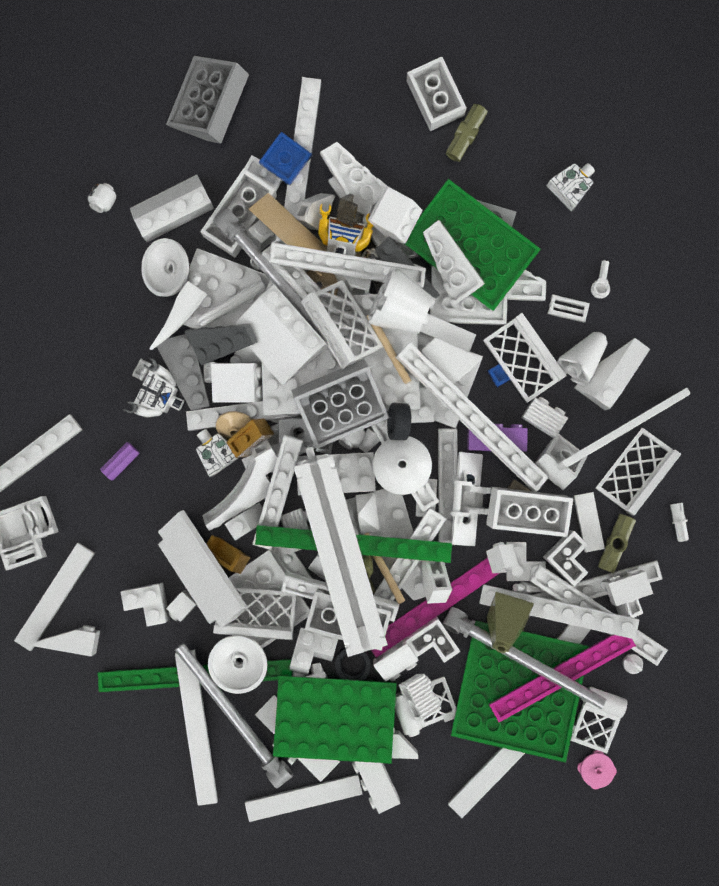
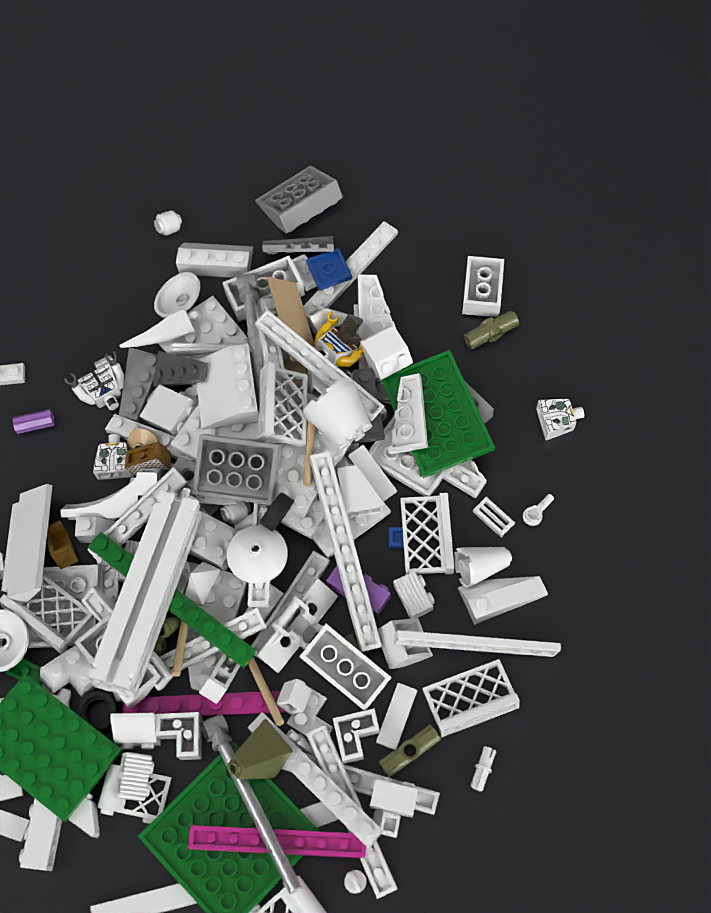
camera: 30 degrees right, 20 degrees down
(247, 145) = (312, 244): none -> light grey wing
(480, 570) = (265, 692): none -> tan bar

